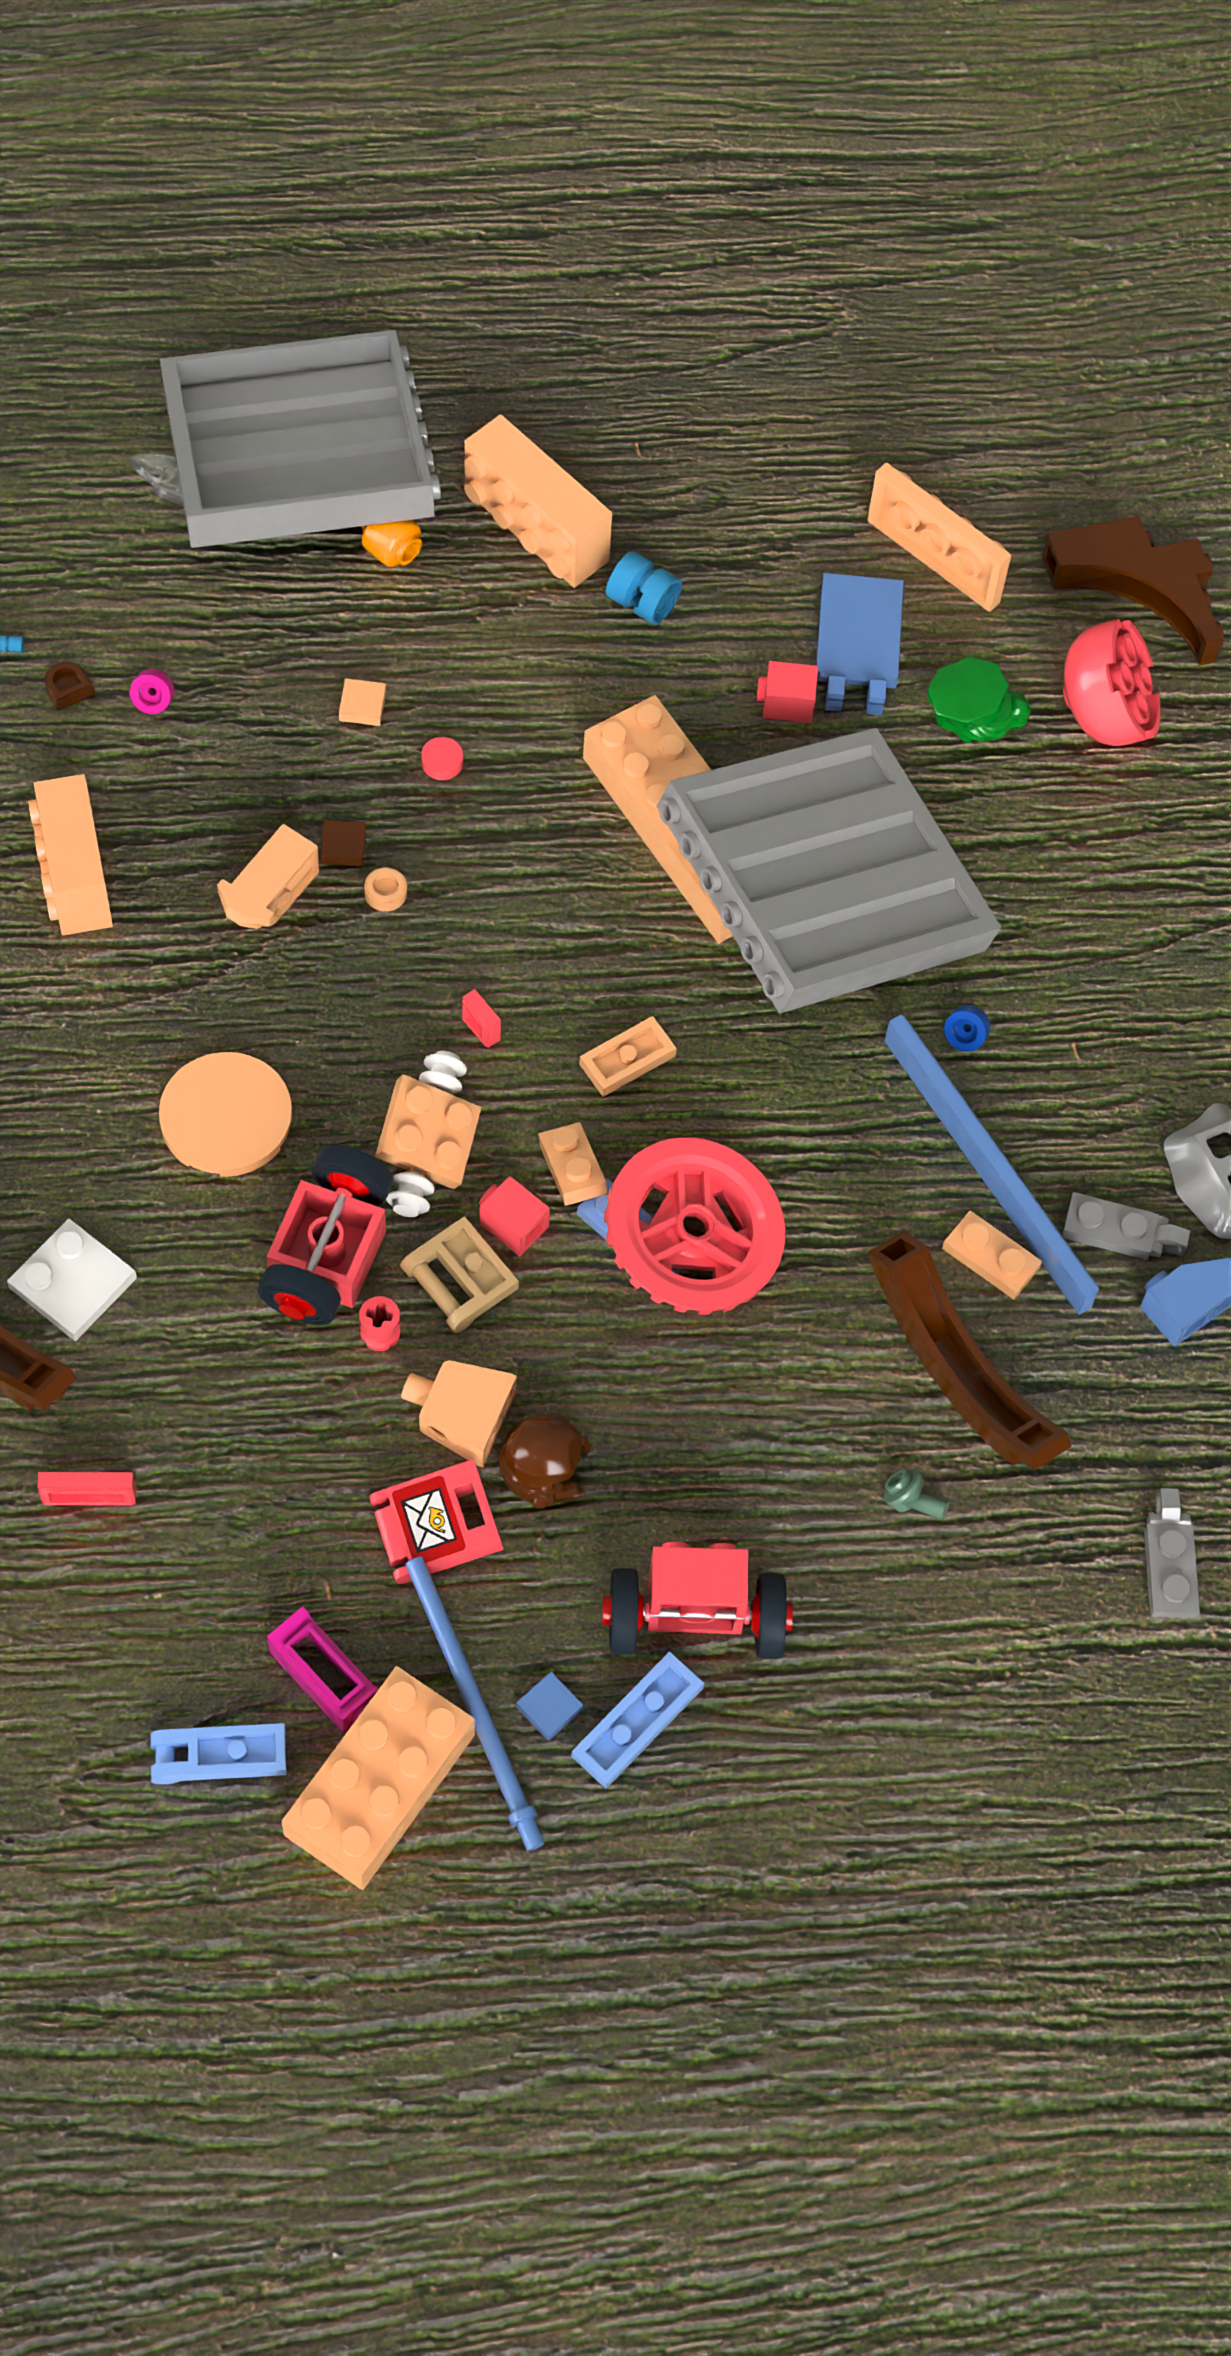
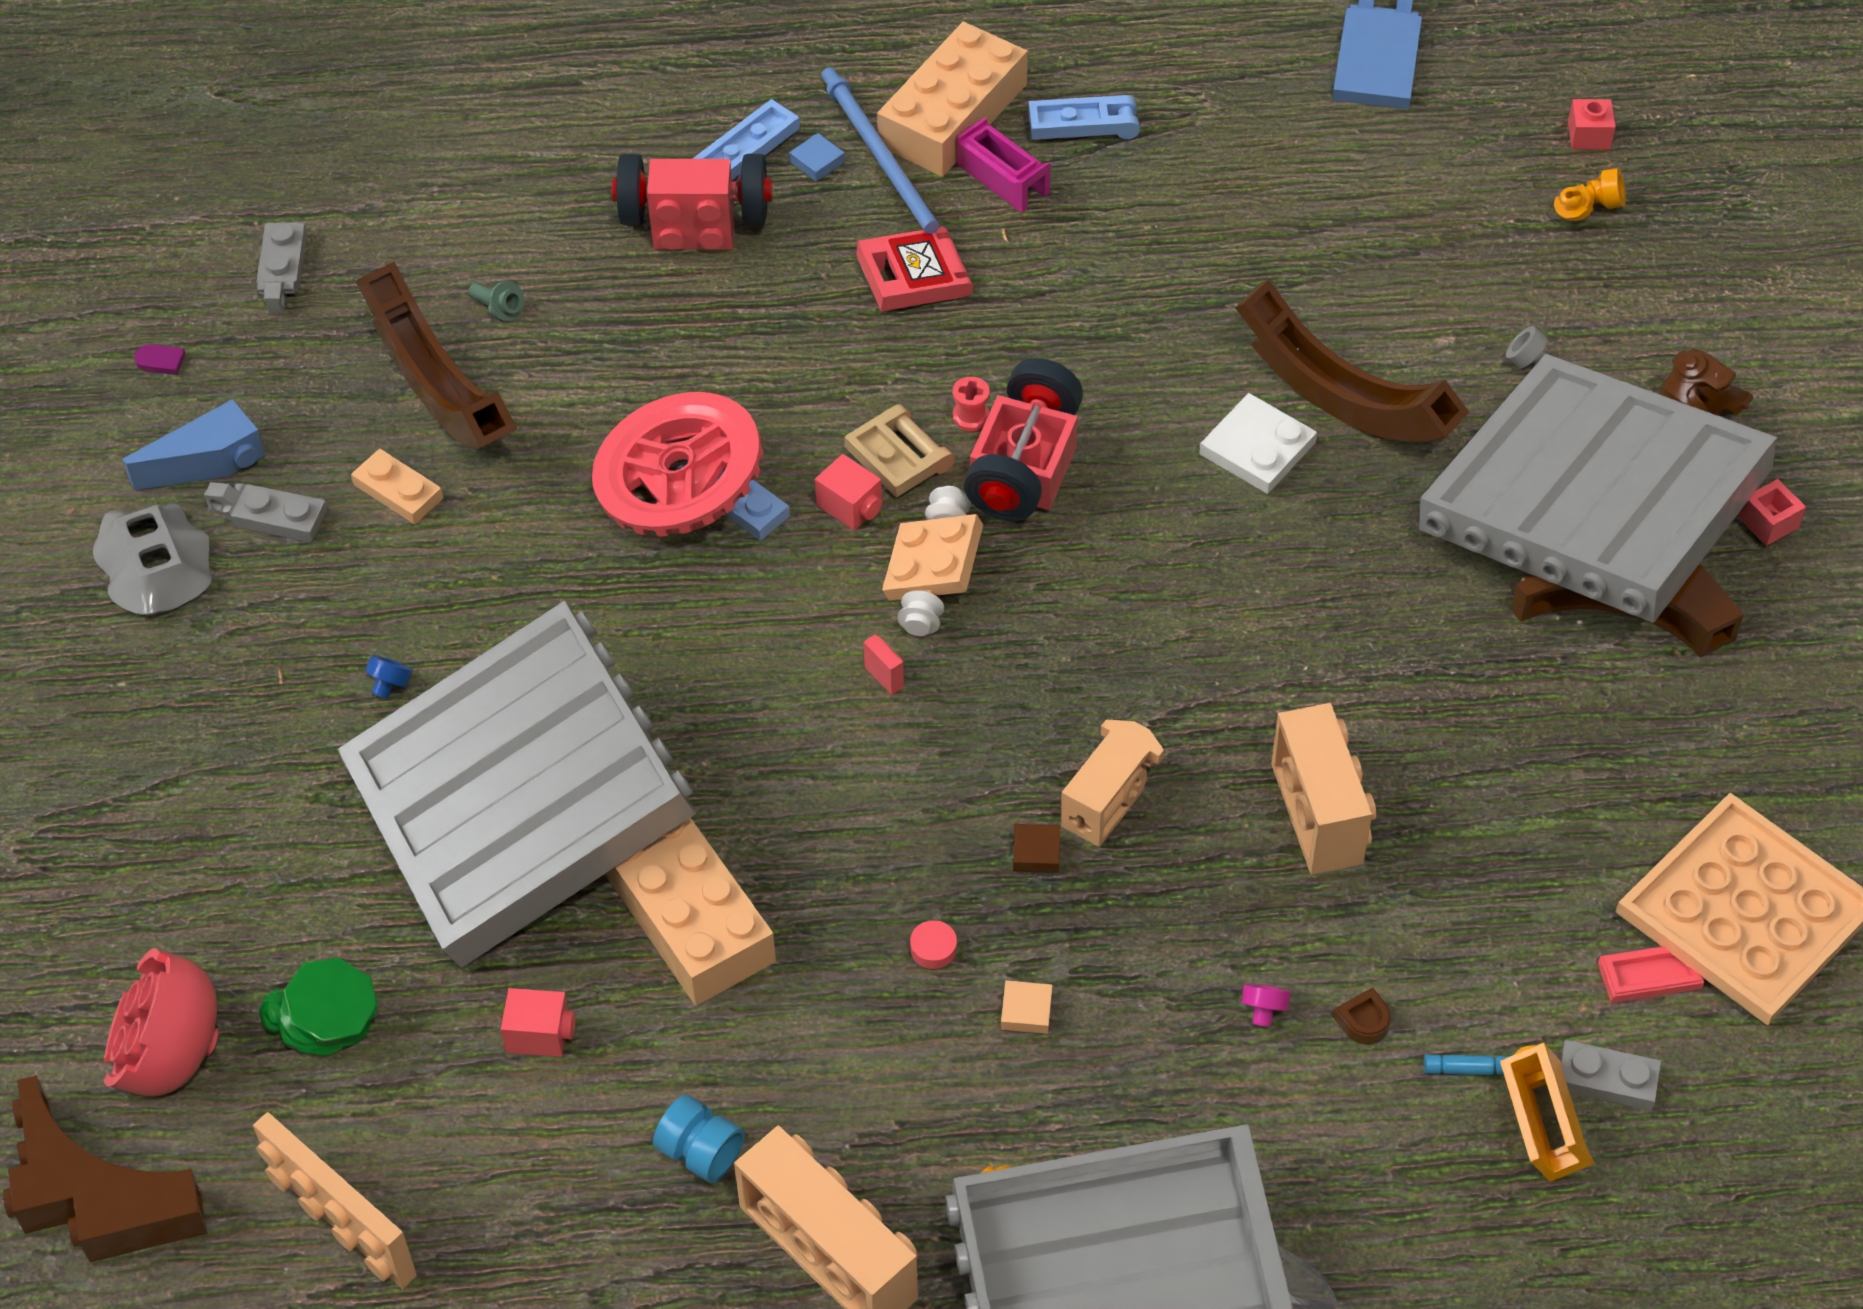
camera: 175 degrees left, 10 degrees down
(87, 1488) = (1216, 278): coral tile -> none
(225, 1113) = (1132, 582): light nougat tile -> none
(385, 889) = (988, 803): light nougat tile -> none
(463, 1406) = (892, 344): light nougat torso -> none
(540, 1456) = (825, 307): reddish brown helmet -> none
(572, 1163) = (793, 538): light nougat plate -> none
(627, 1056) = (735, 638): light nougat plate -> none
(859, 637) = (446, 1104): medium blue tile -> none
(991, 1165) = (386, 549): medium blue tile -> none

